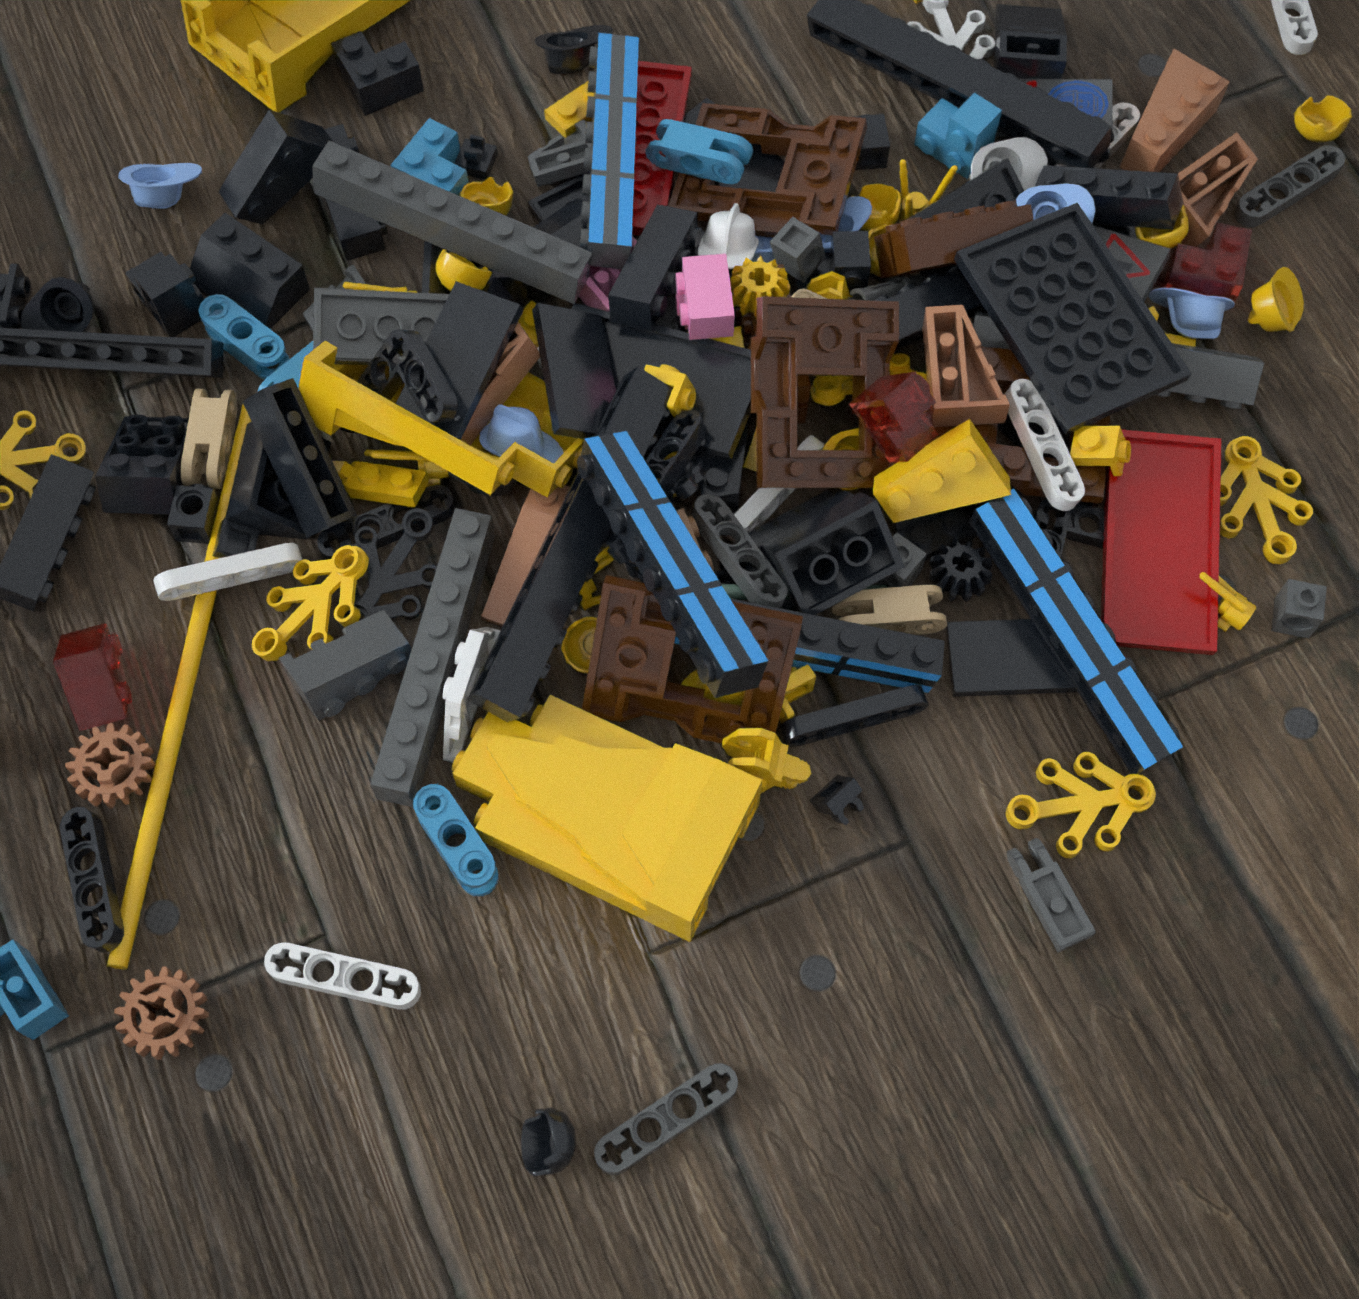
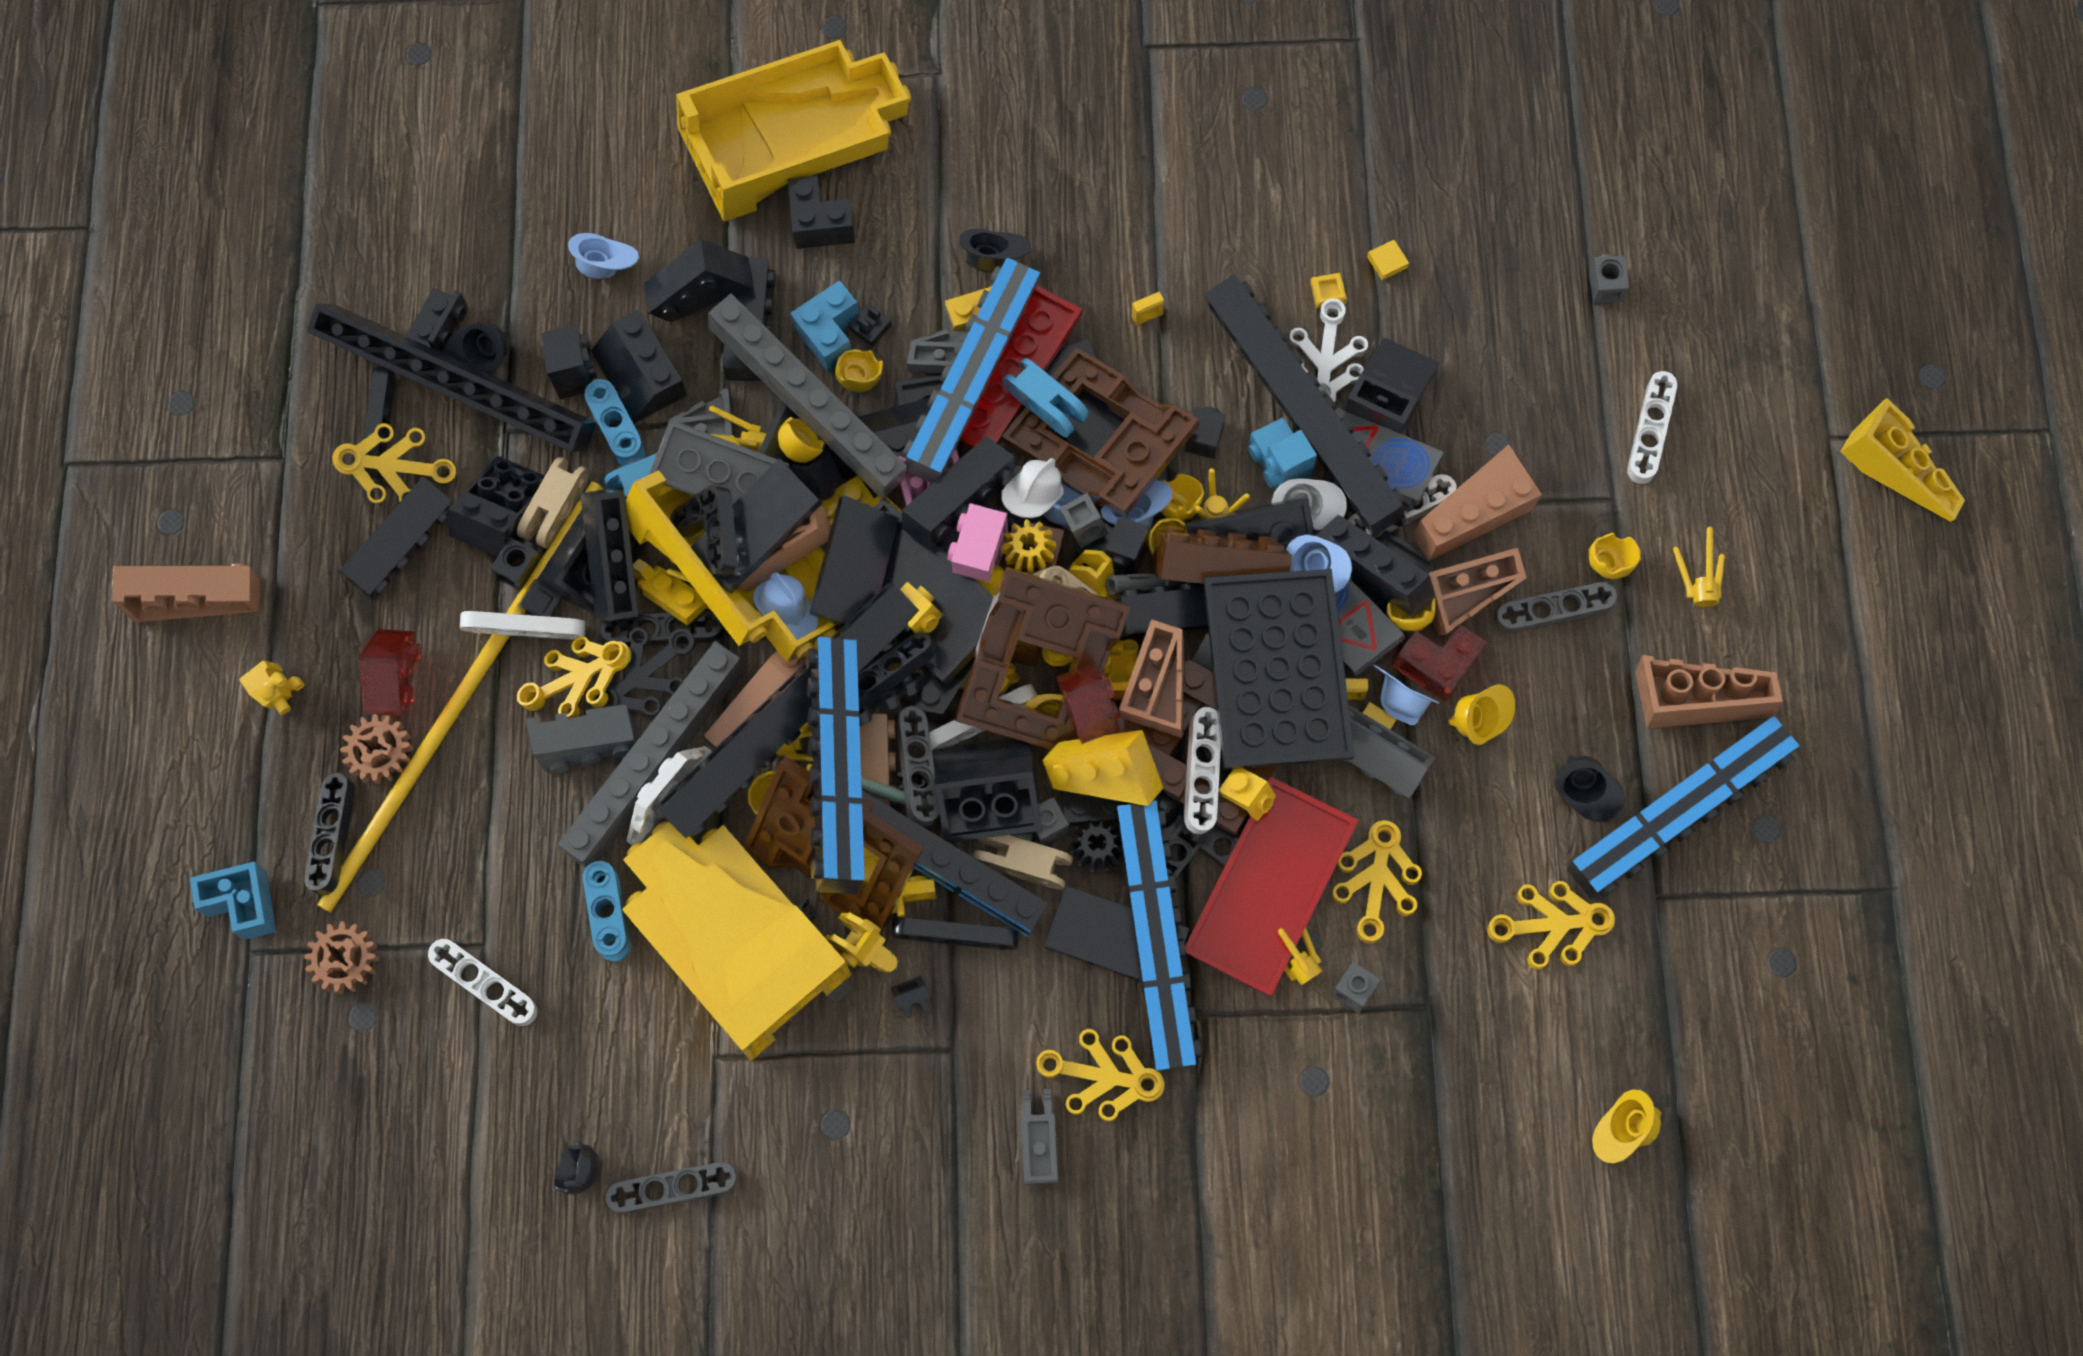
camera: 25 degrees right, 5 degrees up
(754, 50) = (1147, 308): none -> yellow tile

